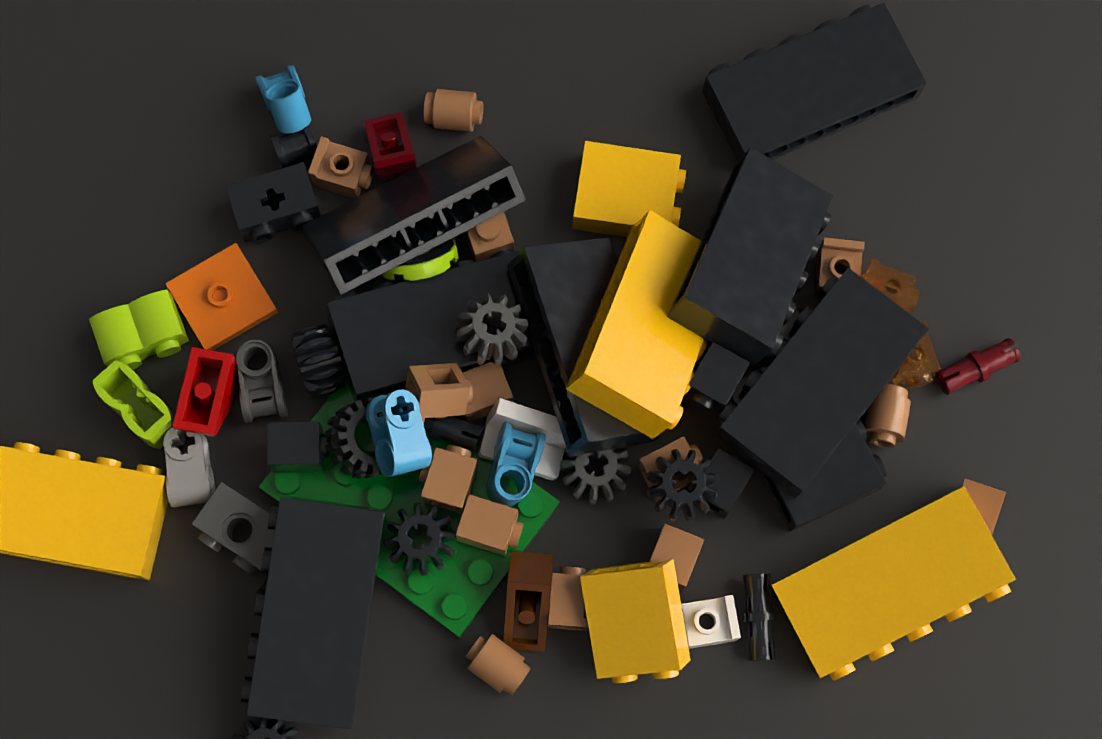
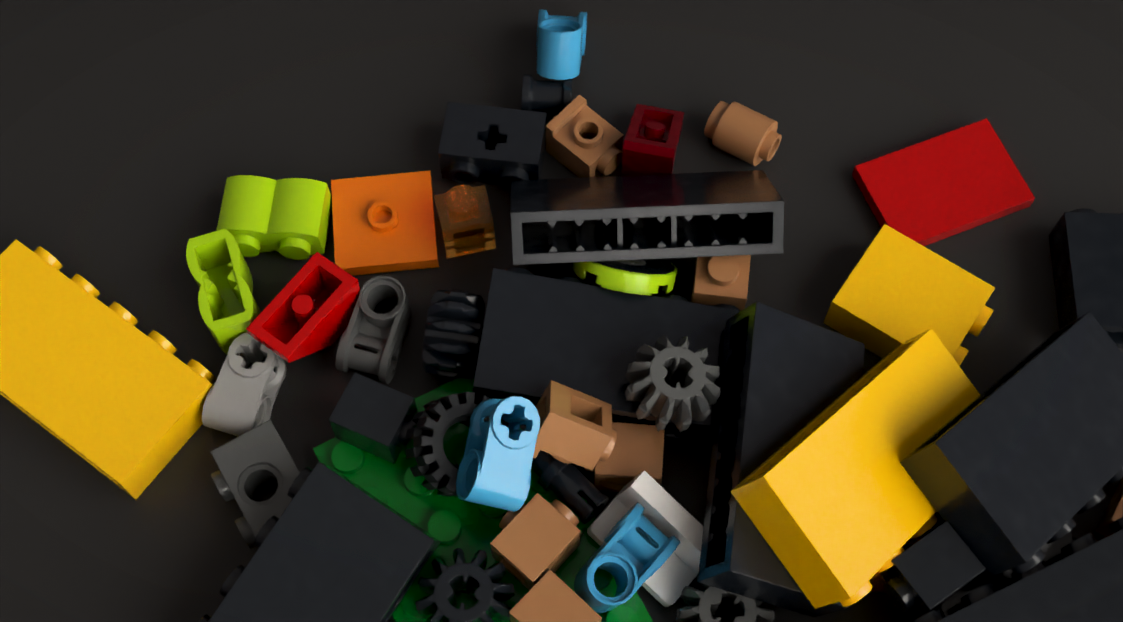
camera: 30 degrees right, 10 degrees down
(282, 270) = (464, 210): none -> clear orange brick
(613, 86) = (944, 184): none -> red tile

